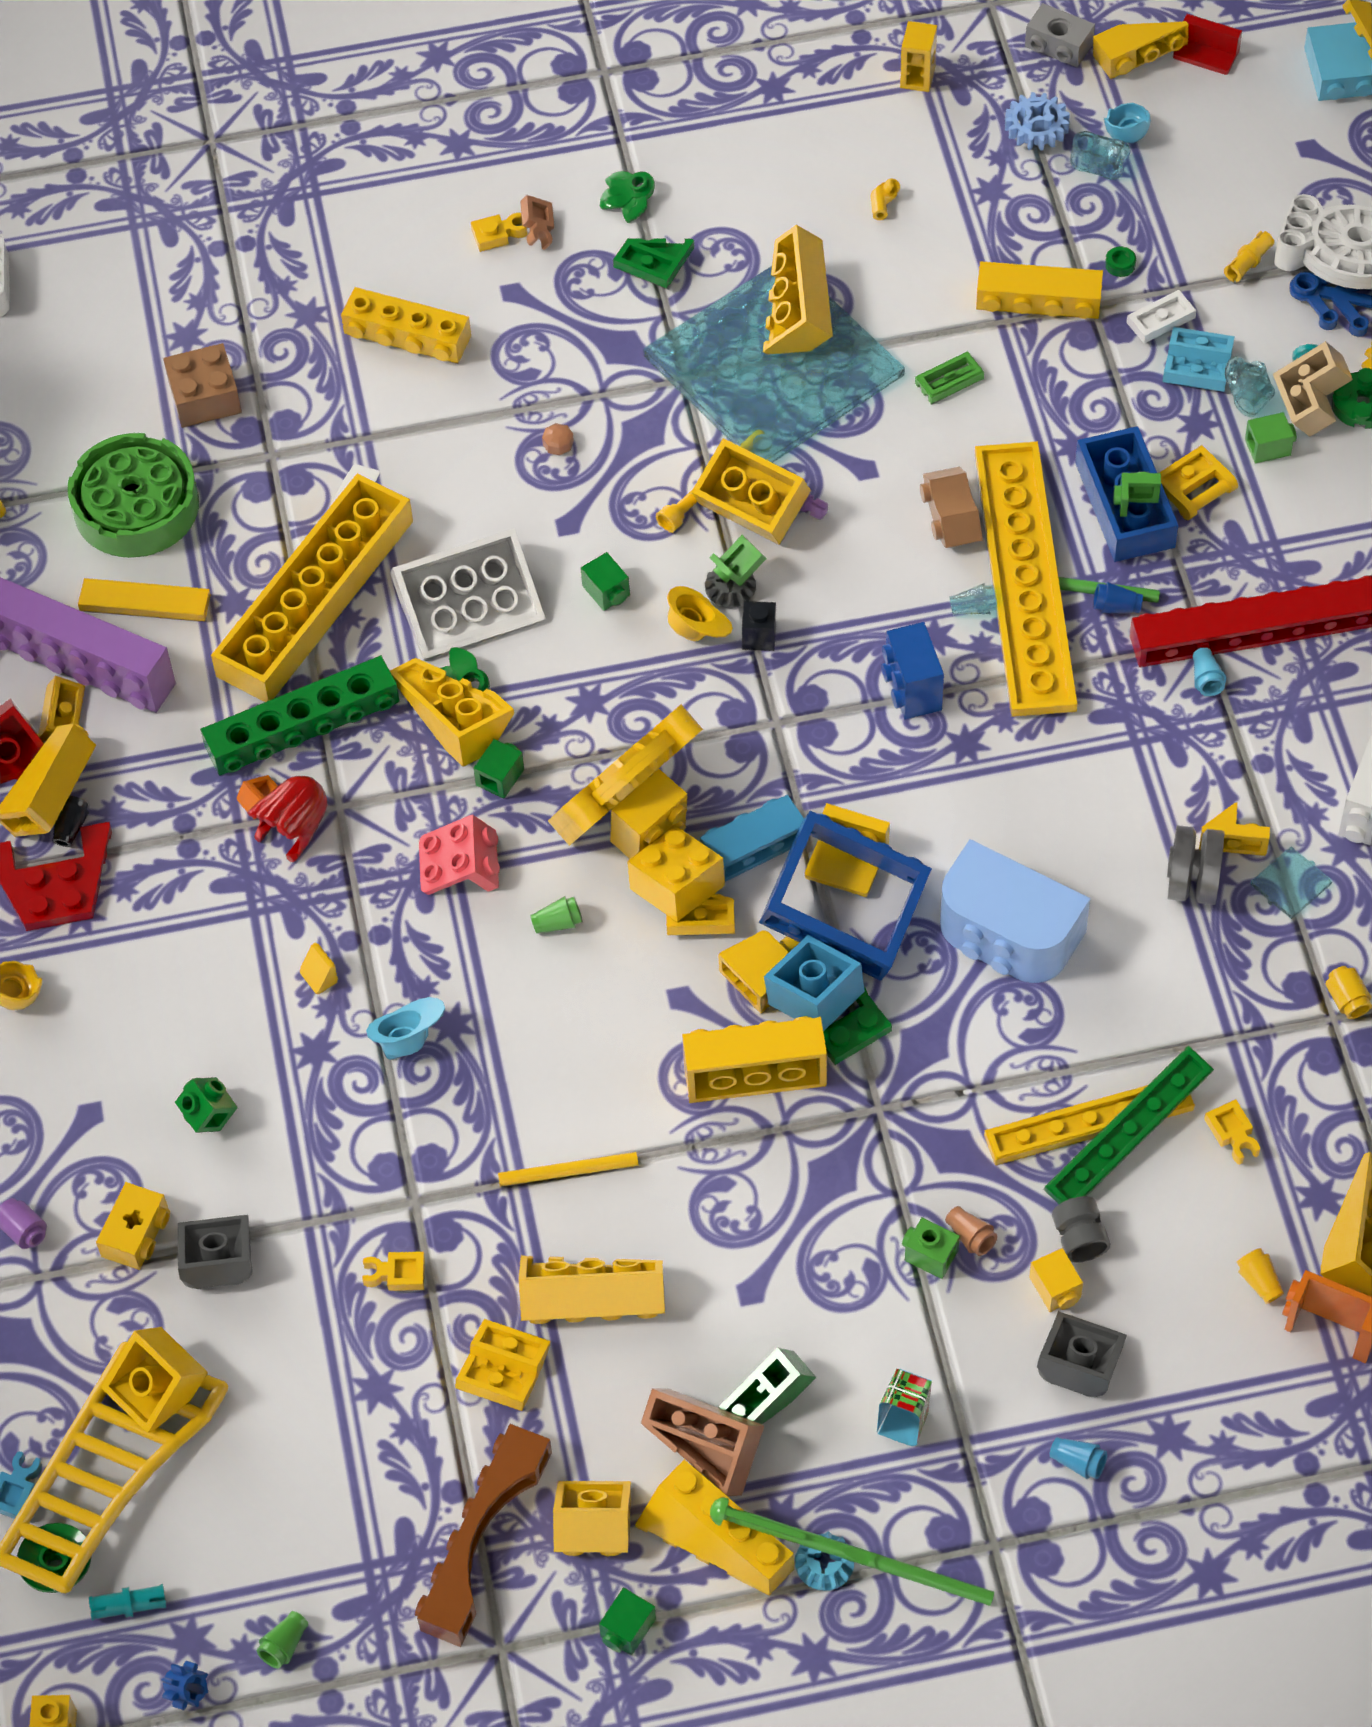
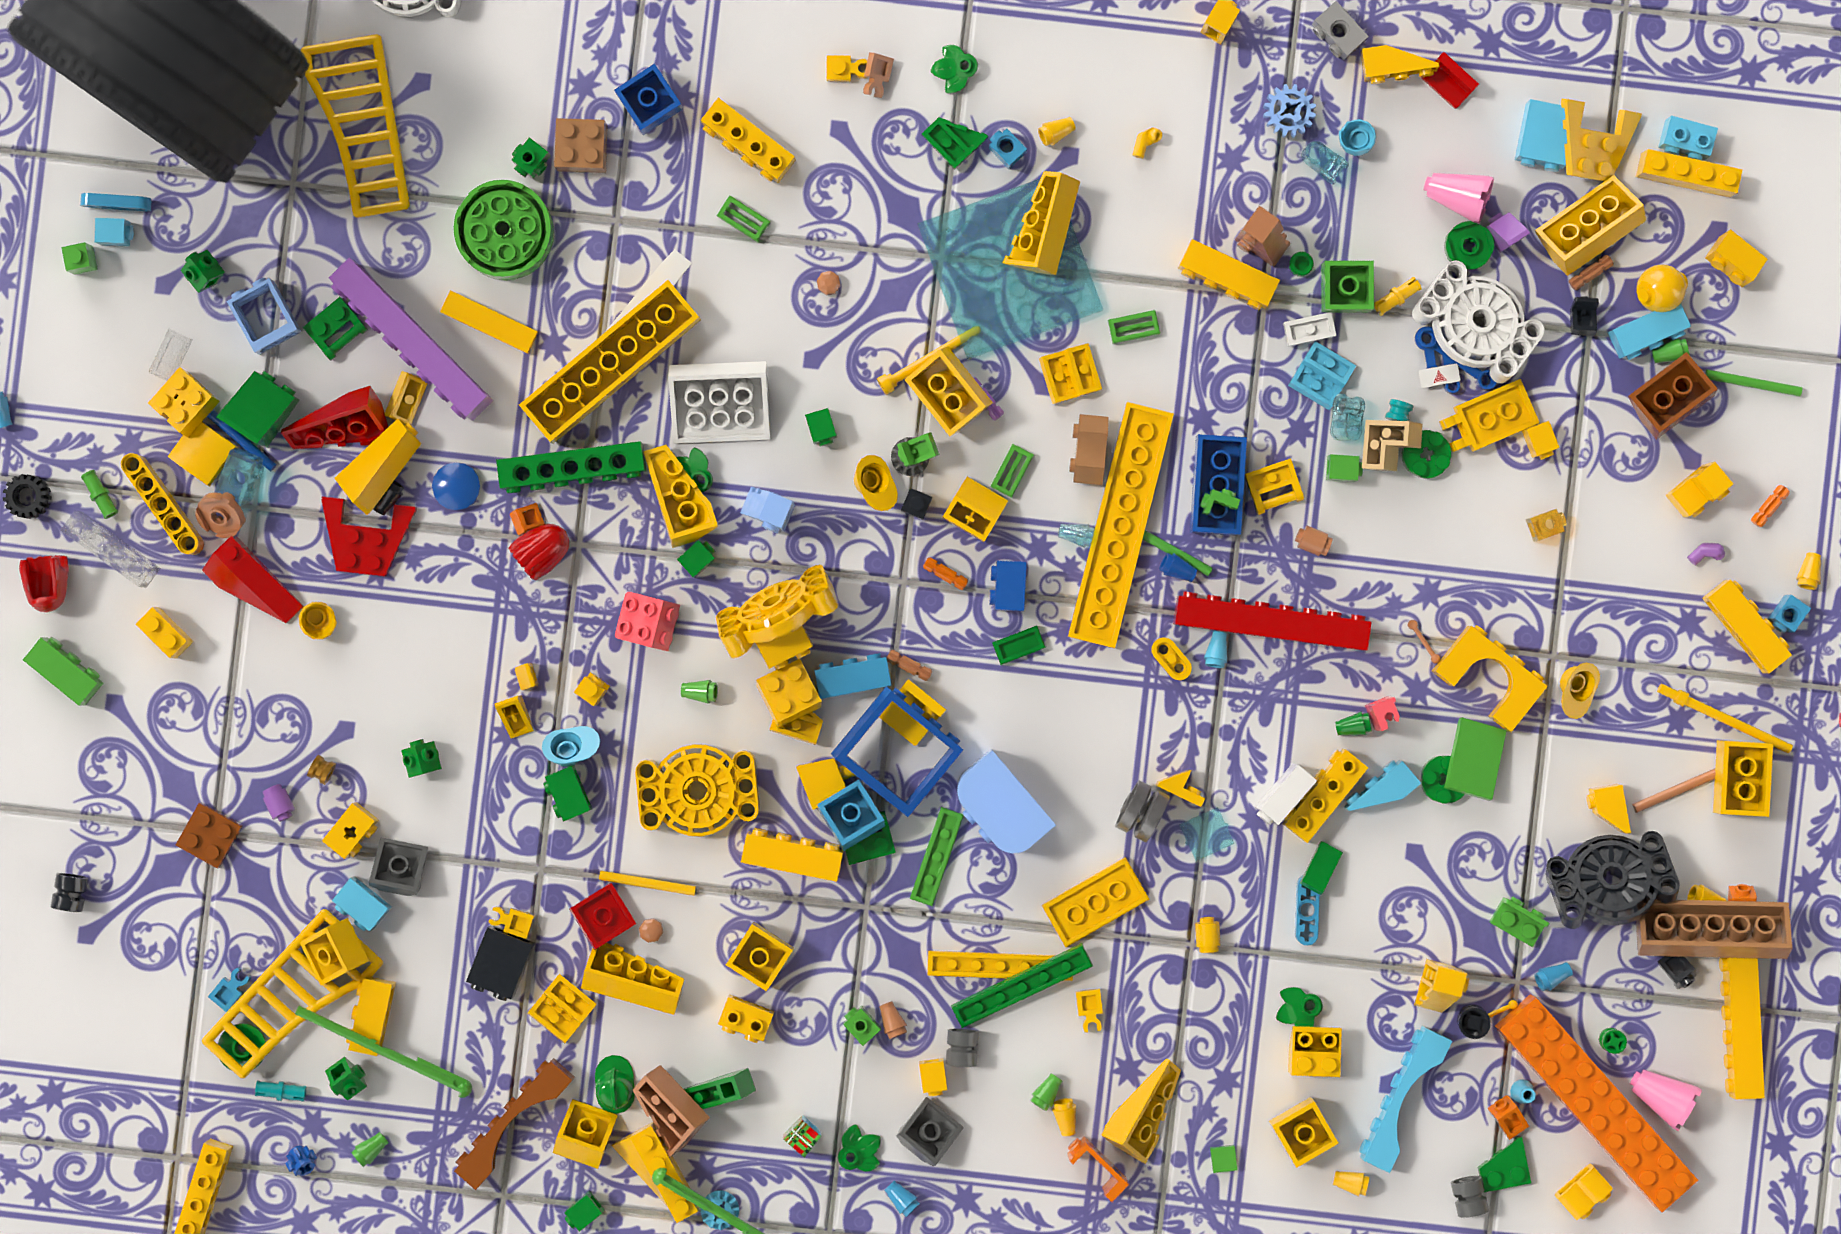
camera: 15 degrees right, 30 degrees up
(70, 1163) = (321, 769): none -> pearl gold wheel
(144, 412) = (529, 150): none -> green brick
(156, 786) = (456, 486): none -> blue dish
(179, 1311) = (361, 904): none -> medium azure brick
(220, 1546) = (346, 1078): none -> green brick
(231, 1455) = (372, 1011): none -> yellow brick
(270, 315) = (648, 99): none -> blue brick
(316, 1015) = (514, 716): none -> yellow slope
(322, 1493) = (421, 1066): none -> bright green bar
(396, 1327) = (500, 963): none -> black brick
(413, 949) = (592, 689): none -> yellow brick
(421, 1088) = (567, 793): none -> green brick
(427, 411) = (725, 207): none -> bright green tile
(520, 1221) = (602, 916): none -> red plate
(575, 674) = (768, 508): none -> light blue wedge
(592, 1000) = (674, 794): none -> yellow piece
(593, 1225) = (651, 930): none -> nougat tile
(612, 1443) = (614, 1084): none -> green piece
(722, 246) = (1009, 158): none -> dark azure brick
(756, 1199) = (760, 956): none -> yellow brick
(766, 1289) = (745, 1018): none -> yellow brick
(771, 216) = (1054, 131): none -> yellow cone
(818, 804) = (909, 665): none -> nougat axle
(826, 694) = (945, 573): none -> orange axle
(834, 614) = (975, 509): none -> yellow slope
(861, 584) = (1002, 489): none -> bright green tile
(893, 444) = (1070, 373): none -> yellow slope
(948, 1017) = (936, 856): none -> bright green tile
(953, 745) = (1018, 645): none -> green tile
(995, 1411) = (861, 1147): none -> green plate
(1060, 229) = (1263, 237): none -> nougat wedge
(1155, 698) = (1171, 658): none -> yellow plate
(1182, 1004) = (1095, 902): none -> yellow tile
(1186, 256) = (1347, 286): none -> bright green brick
(1221, 1255) = (1046, 1093): none -> bright green cone
(1271, 521) = (1313, 541): none -> nougat brick
(1273, 135) = (1461, 193): none -> bright pink cone
(1299, 173) = (1475, 233): none -> green plate
(1338, 317) = (1439, 375): none -> white sticker
(1345, 156) = (1506, 230): none -> medium lavender slope

